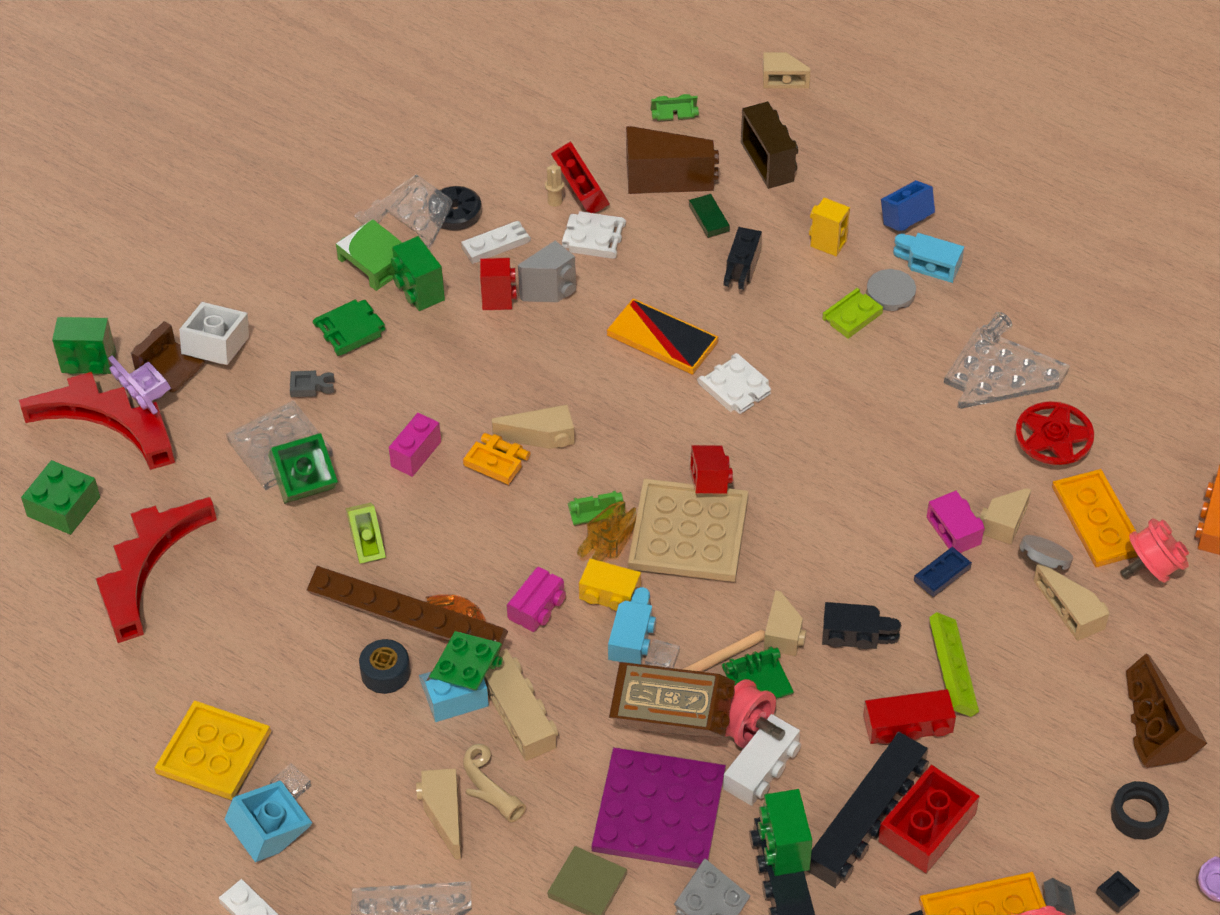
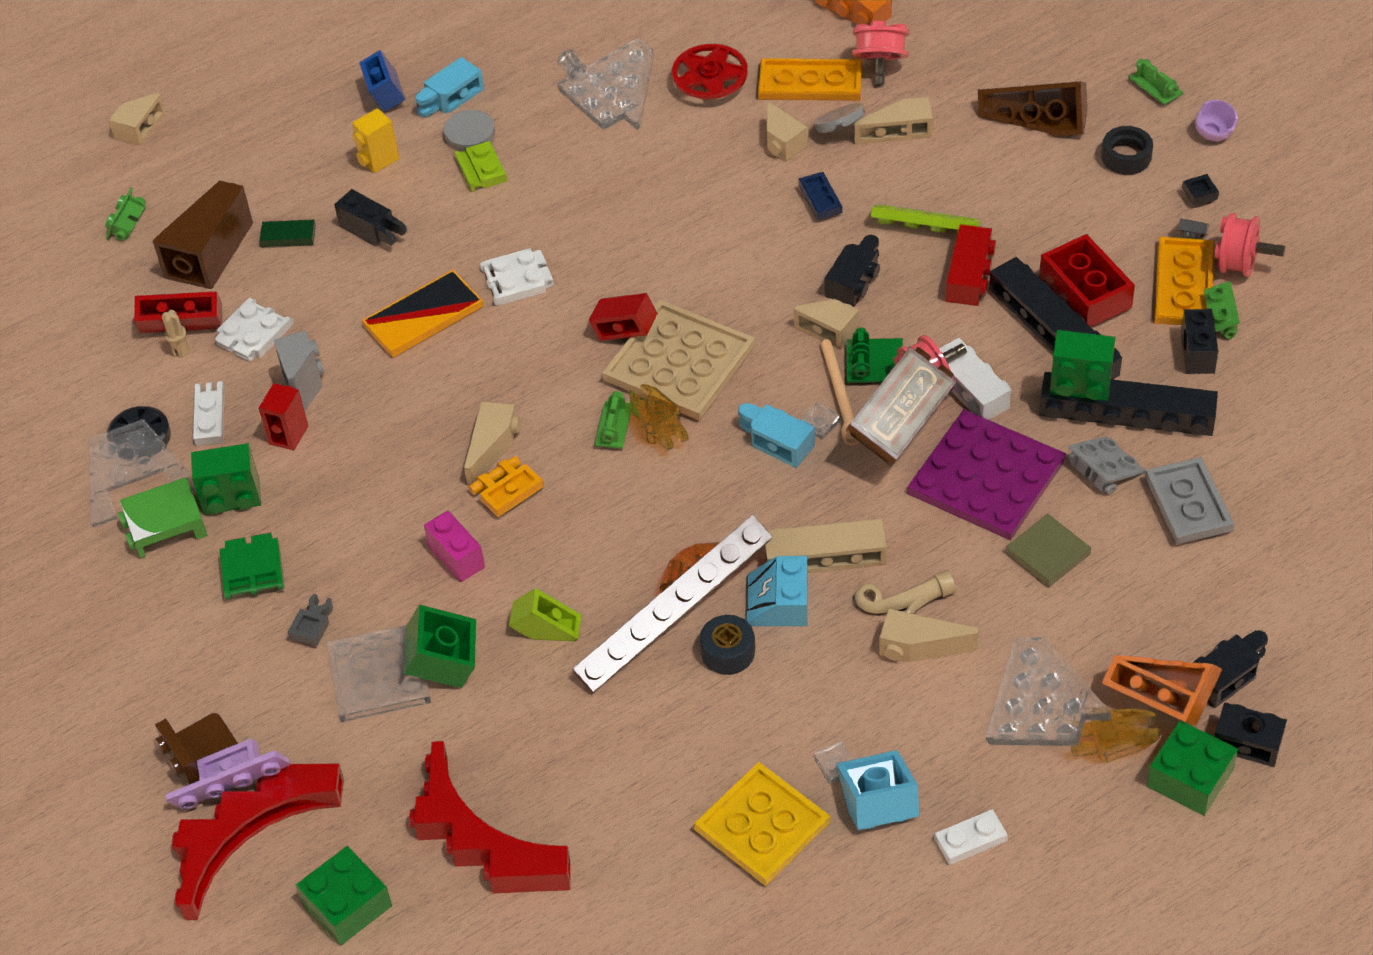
camera: 65 degrees left, 0 degrees up
(83, 345) = (134, 818): green brick -> none
(214, 333) = (194, 686): white brick -> none
(467, 660) = (774, 558): green hinge -> none
(536, 599) = (705, 498): dark pink brick -> none
(608, 584) = (718, 436): yellow brick -> none
(768, 144) = (237, 153): dark brown piece -> none
(955, 522) = (772, 169): dark pink brick -> none

